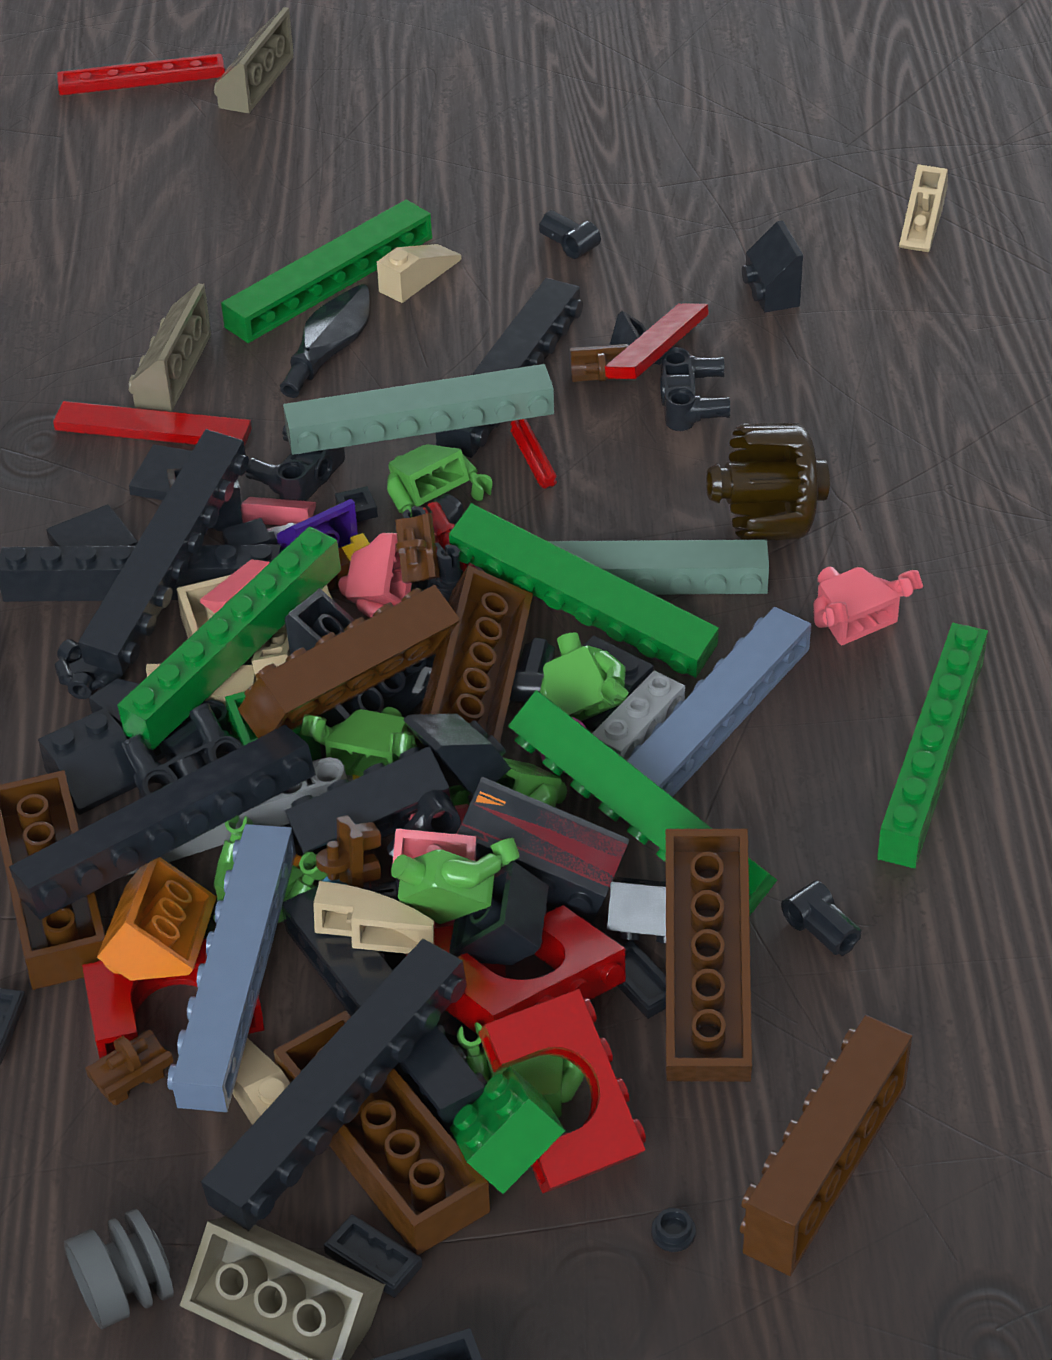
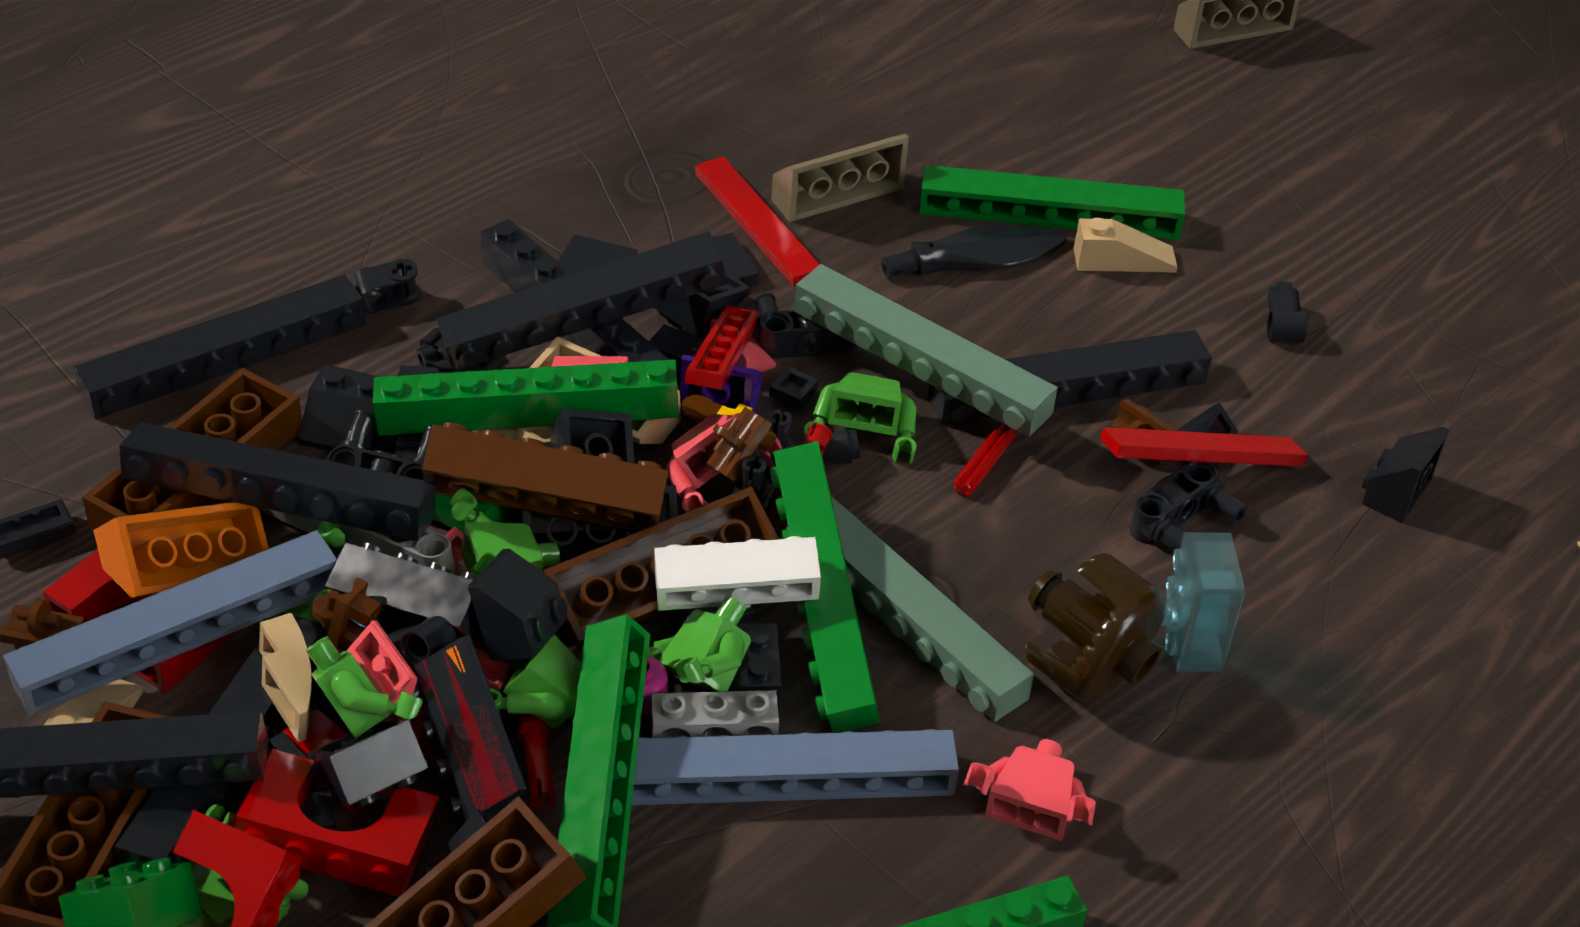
camera: 45 degrees right, 0 degrees up
(306, 503) = (722, 348): none -> red tile
(546, 614) = (742, 570): none -> white brick
(806, 398) = (1203, 601): none -> clear light blue brick

